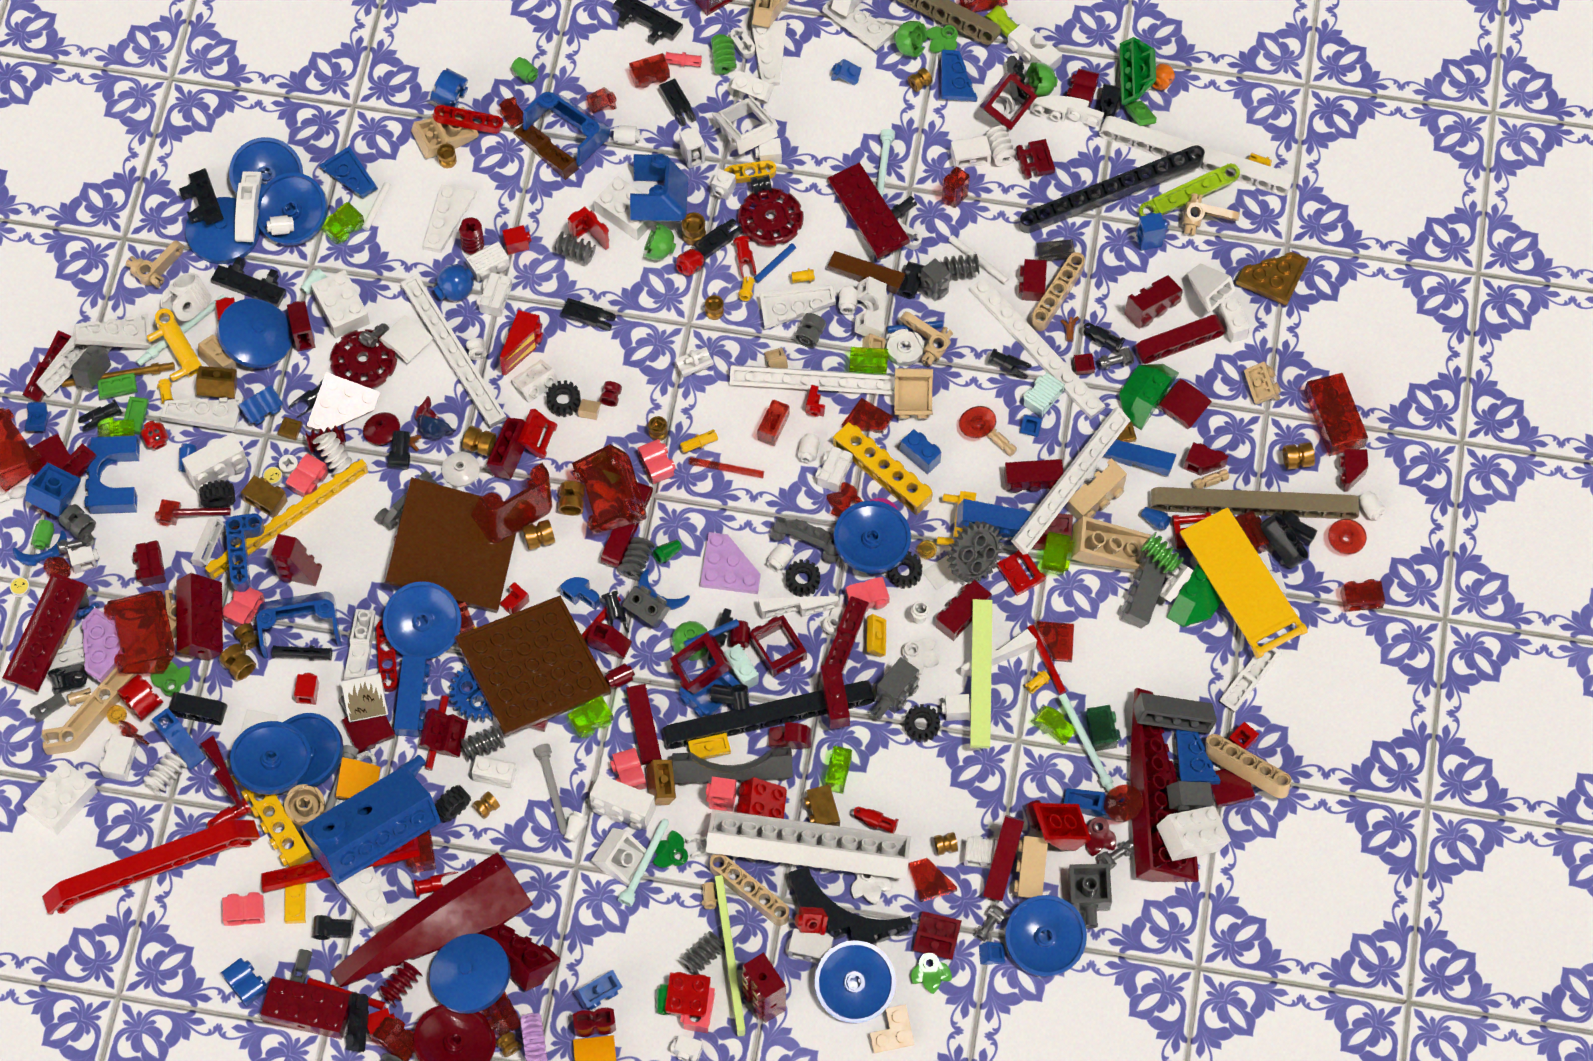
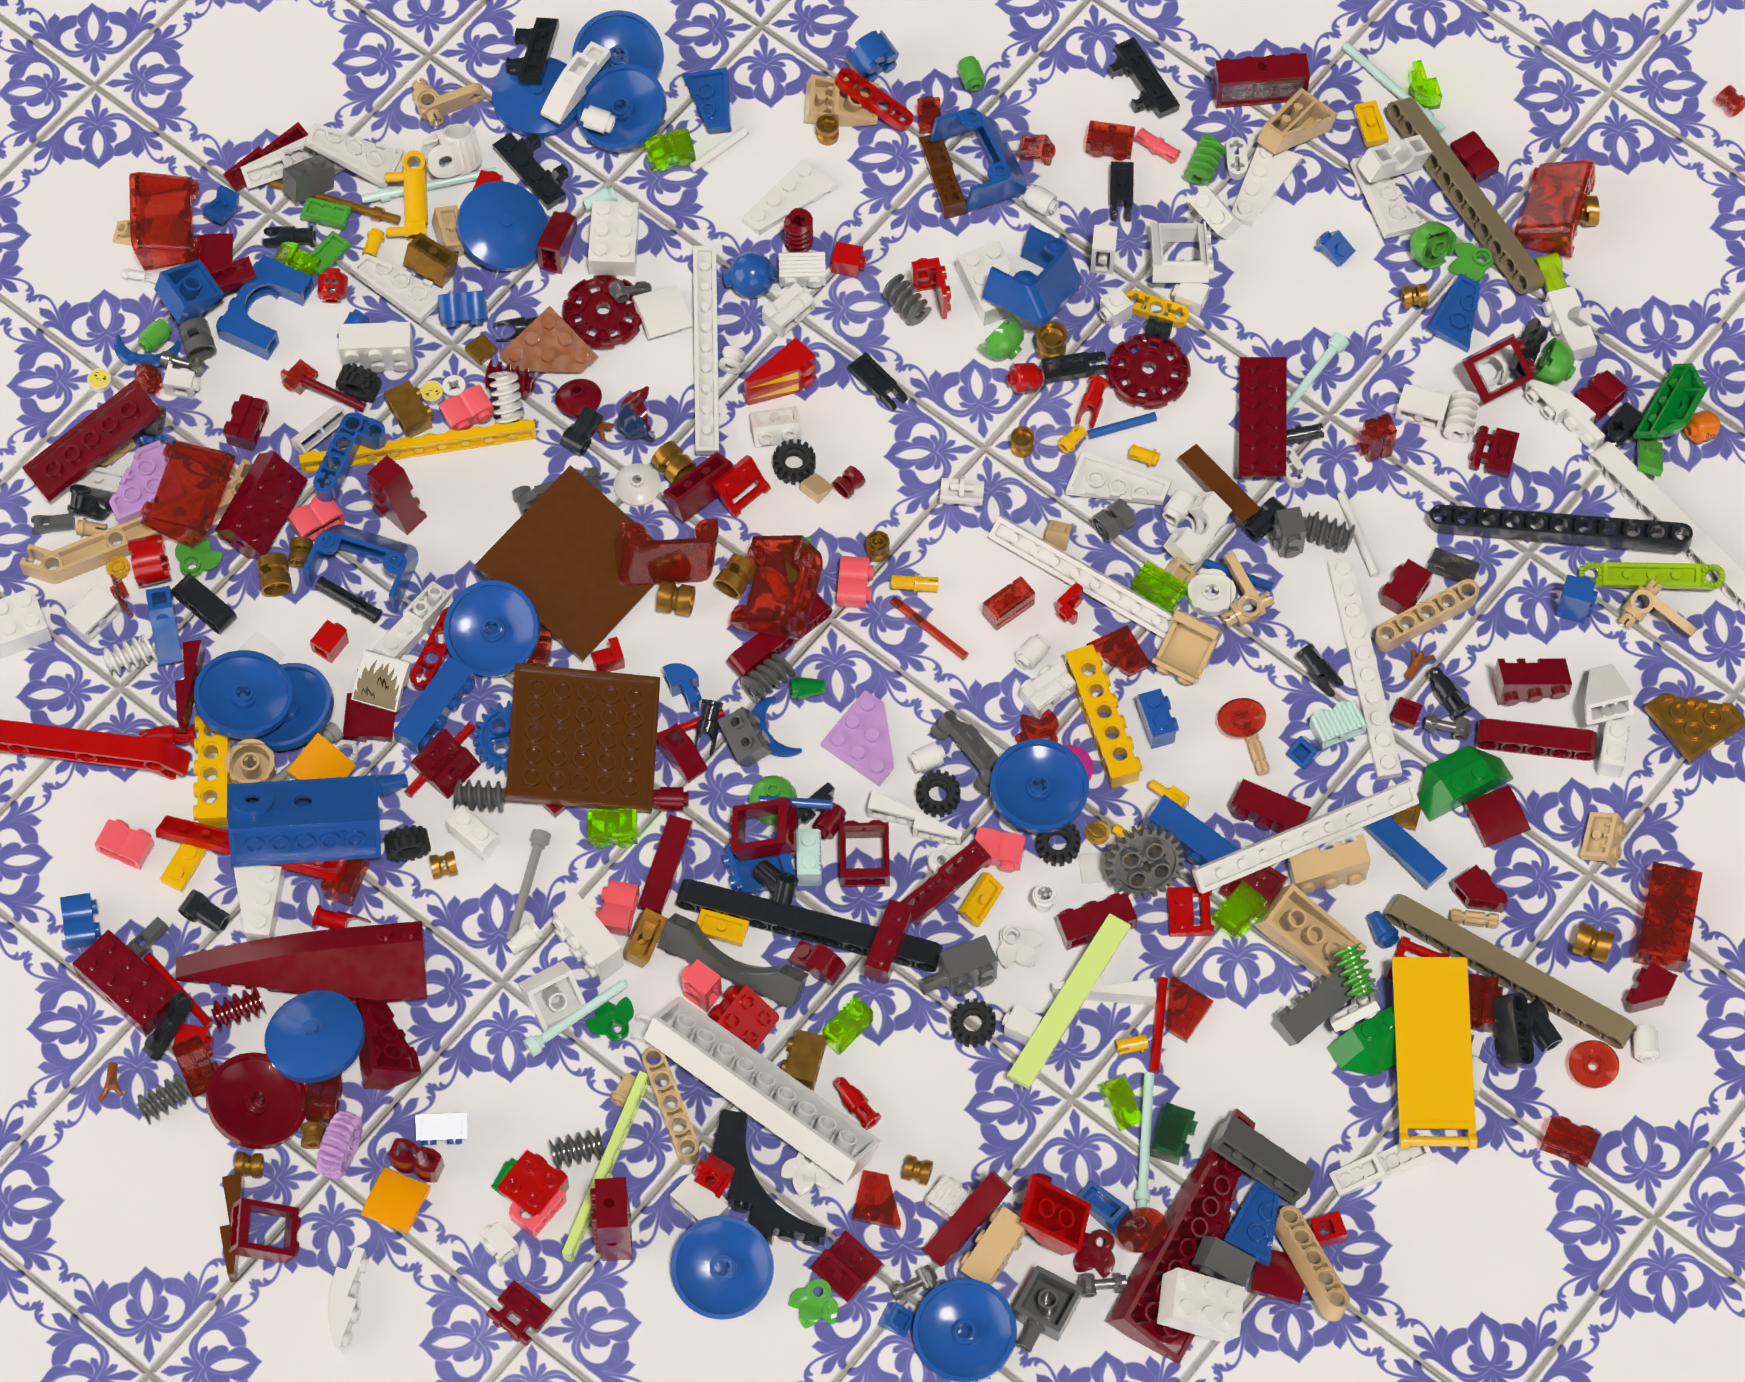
camera: 30 degrees right, 0 degrees up
(898, 1034) = (738, 1351): plate -> none

